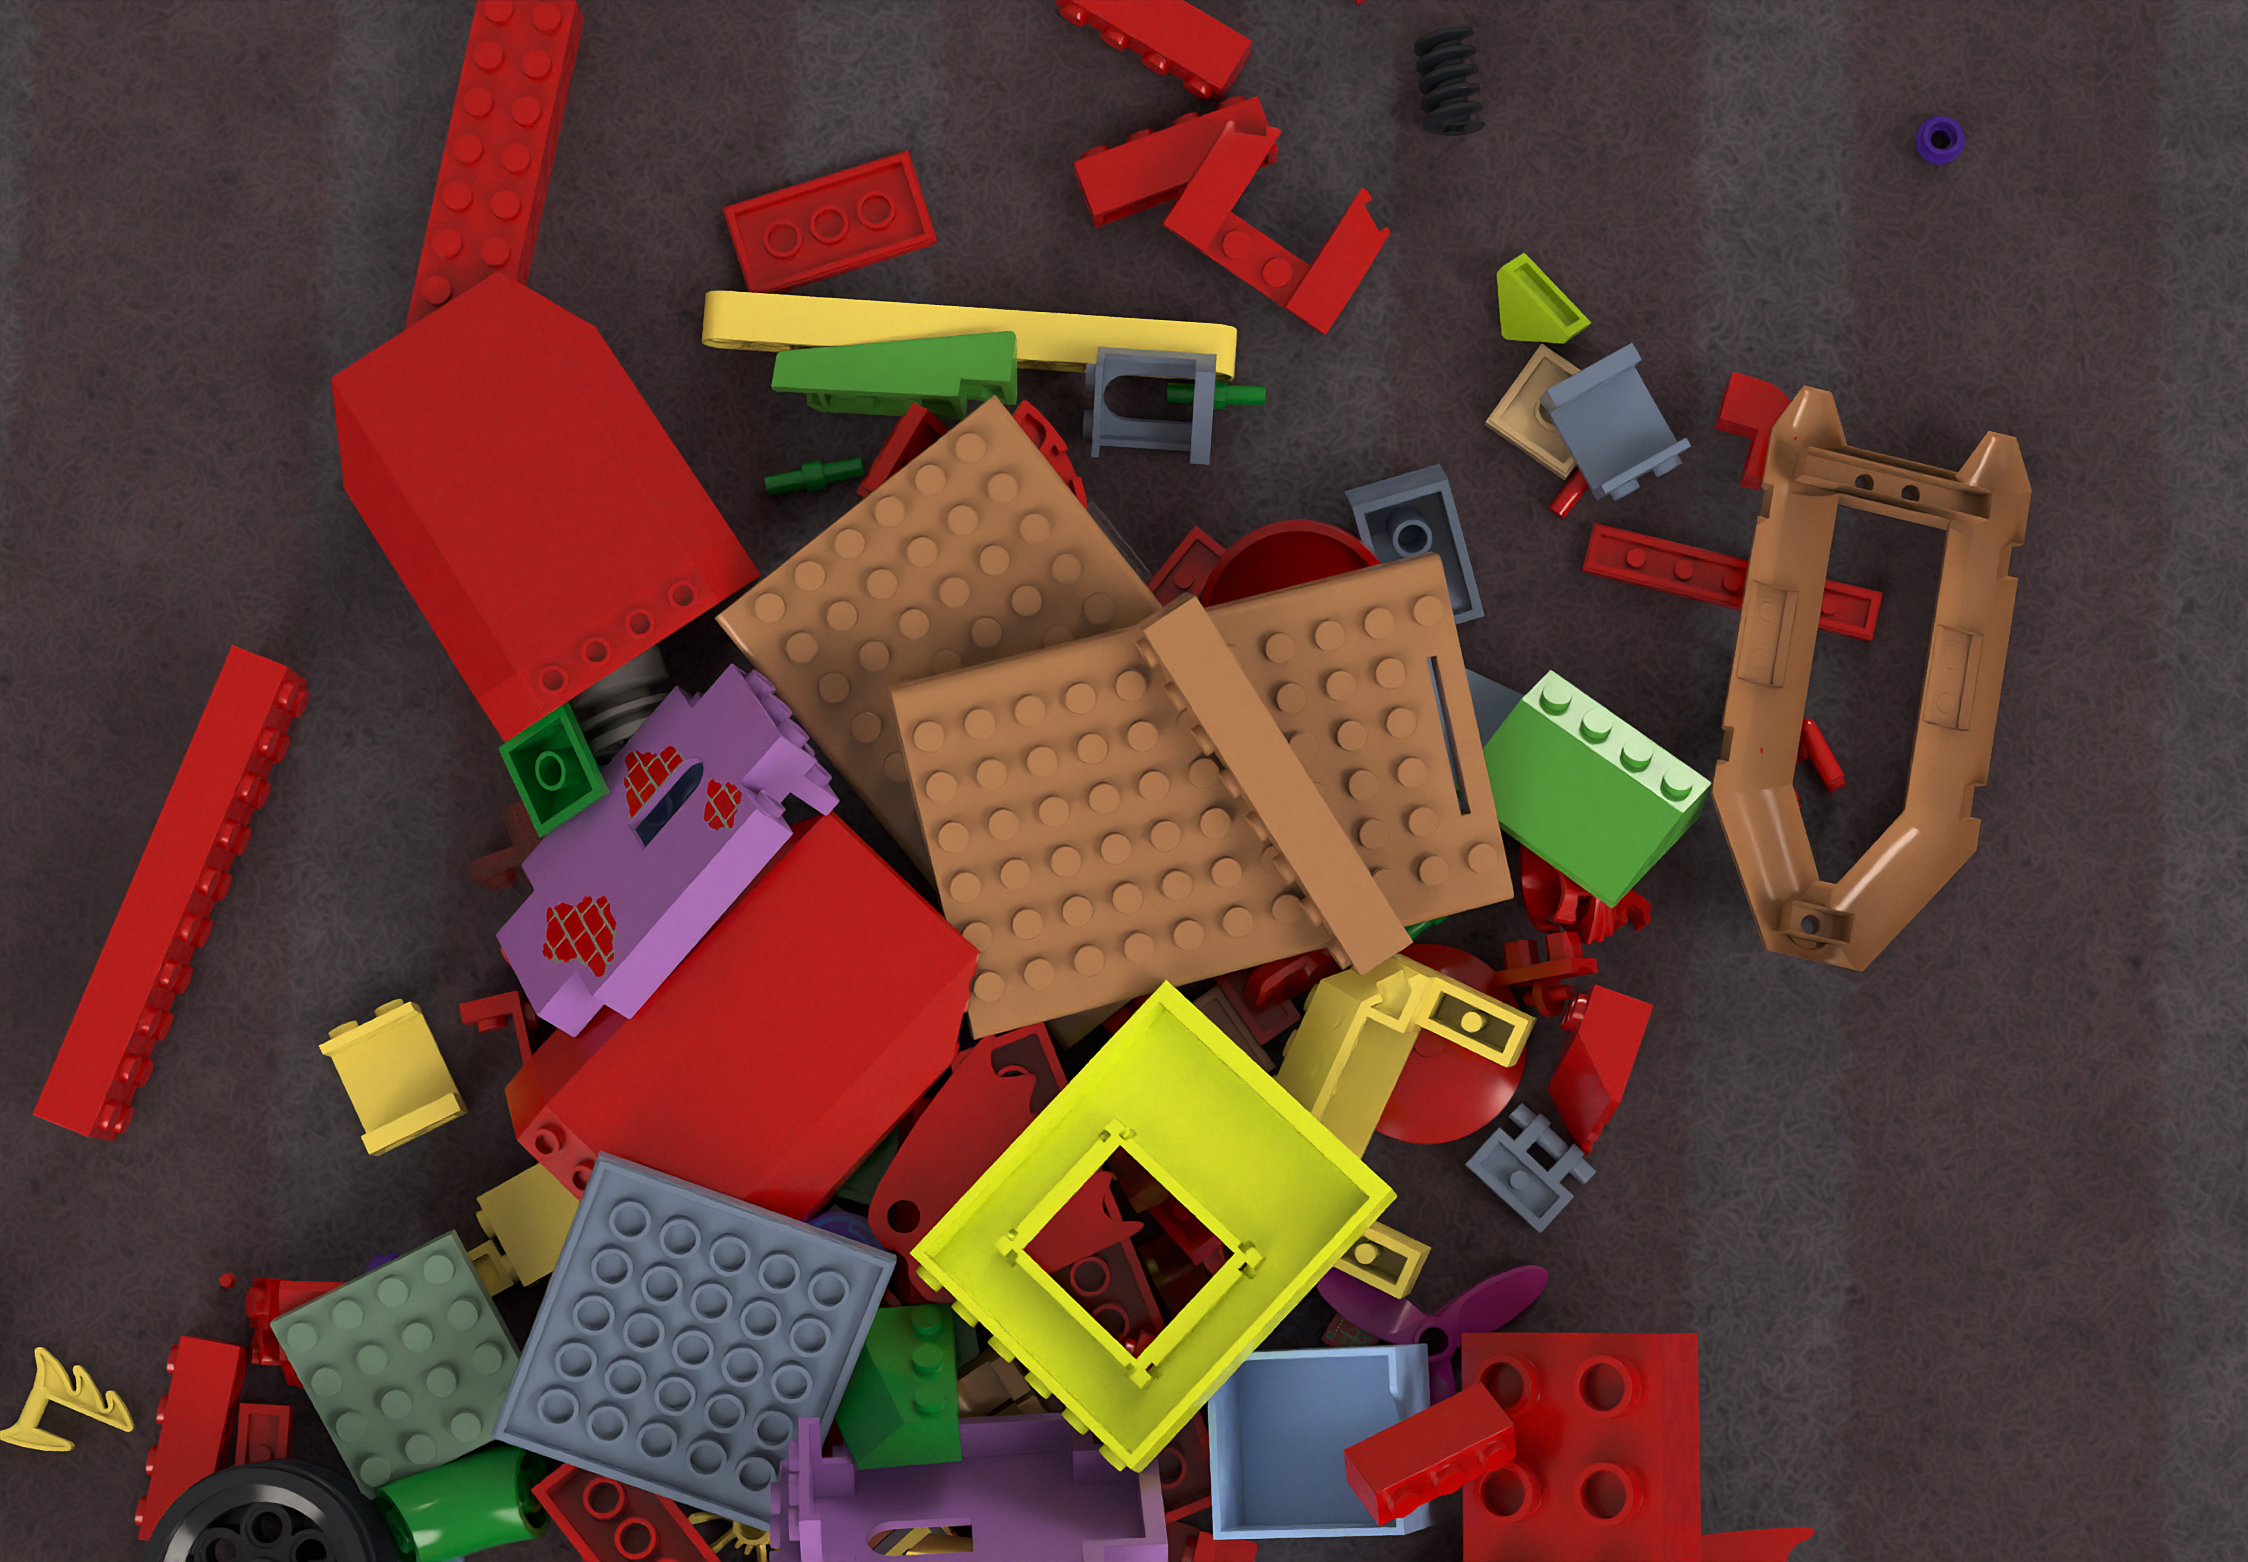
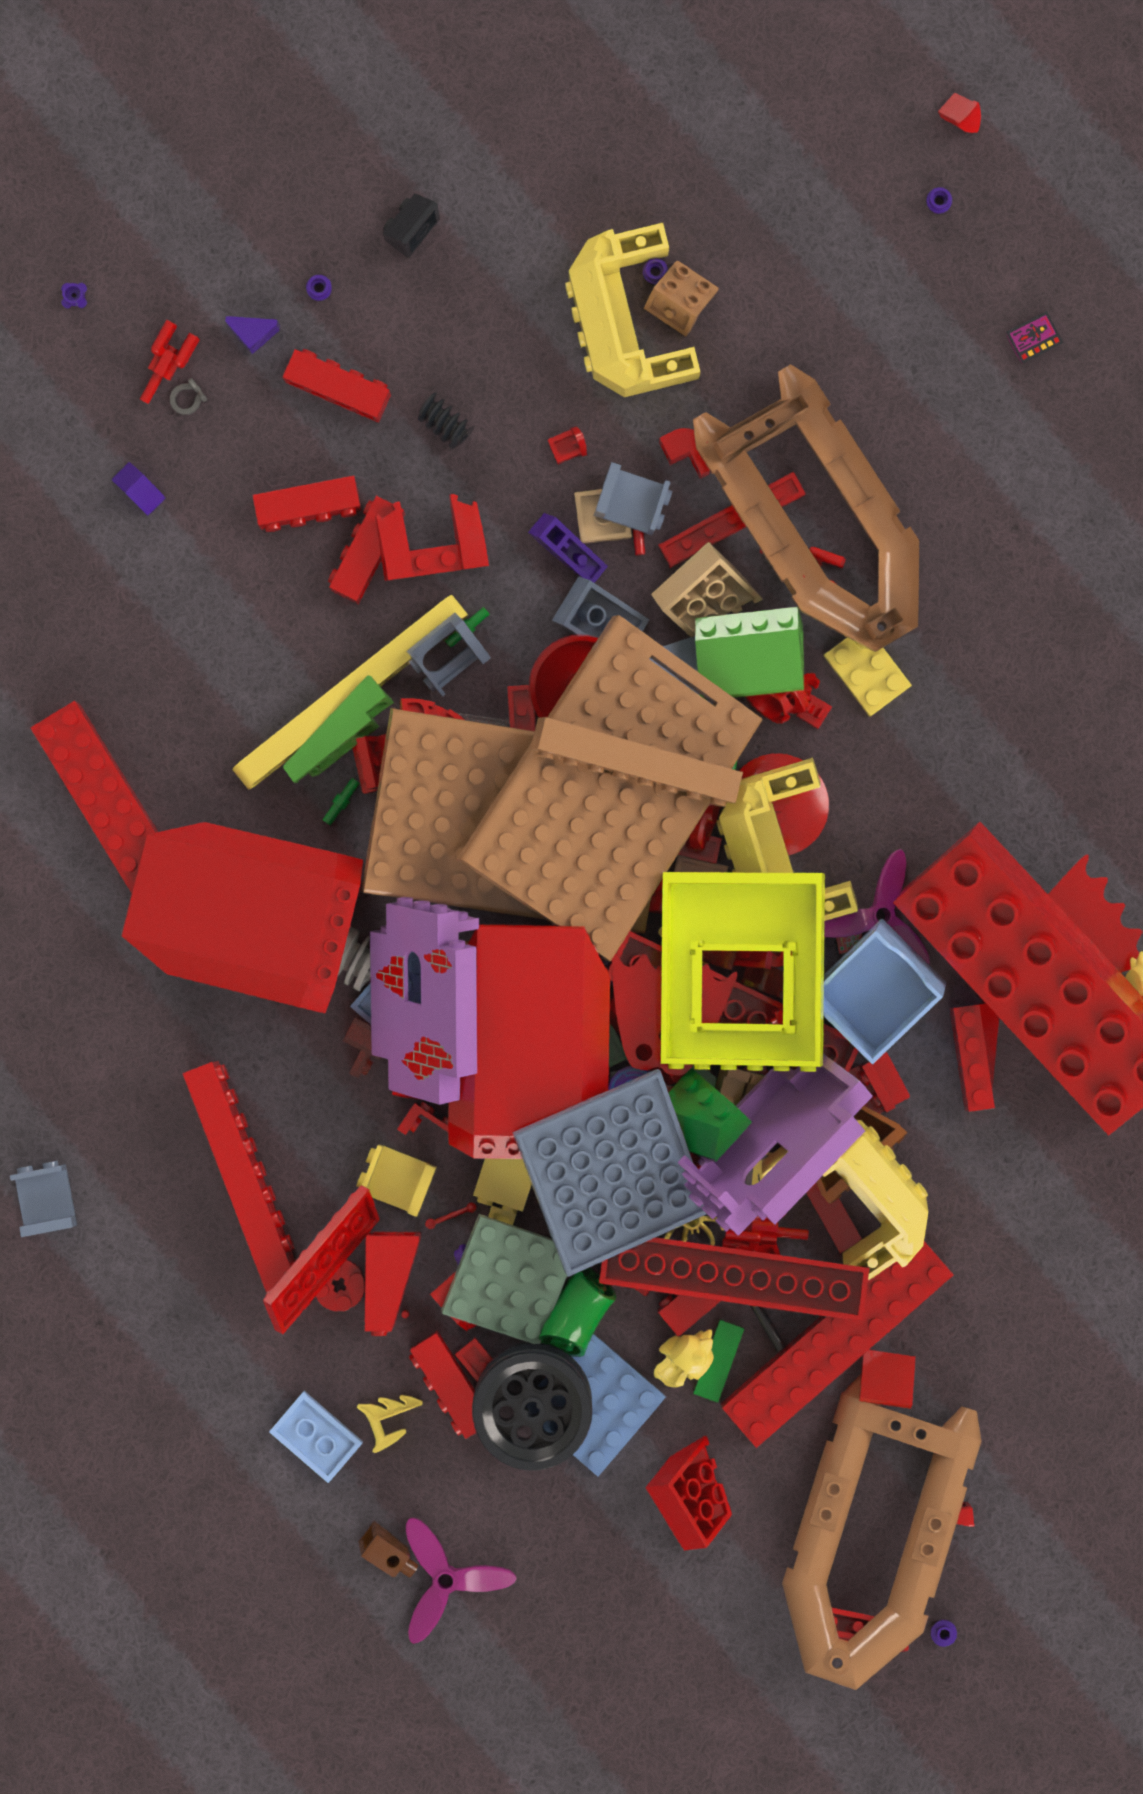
camera: 45 degrees left, 5 degrees up
(172, 1086) = (321, 1259): none -> red plate
(199, 1165) = (343, 1299): none -> red plate
(248, 1199) = (386, 1277): none -> red slope
(262, 1308) = (431, 1311): red plate -> none
(385, 1185) = (431, 1223): none -> red hinge
(553, 770) = (353, 1007): green slope -> none
(830, 225) = (254, 697): red tile -> none
(1430, 1454) = (925, 958): red brick -> none
(1460, 411) = (567, 547): none -> dark purple slope
(1519, 1178) = (859, 824): sand blue plate -> none
(1534, 306) = (558, 480): lime slope -> none
(1563, 963) = (801, 725): red hips -> none
(1592, 270) = (568, 445): none -> red tile
(1595, 1060) = (848, 753): red wedge -> none
(1603, 639) = (704, 588): none -> tan wedge
(1611, 960) = (815, 712): none -> red tile
(1727, 977) = (867, 674): none -> light yellow plate
(1811, 140) = (606, 317): none -> light yellow wedge
(1941, 207) = (680, 297): none -> medium nougat bracket

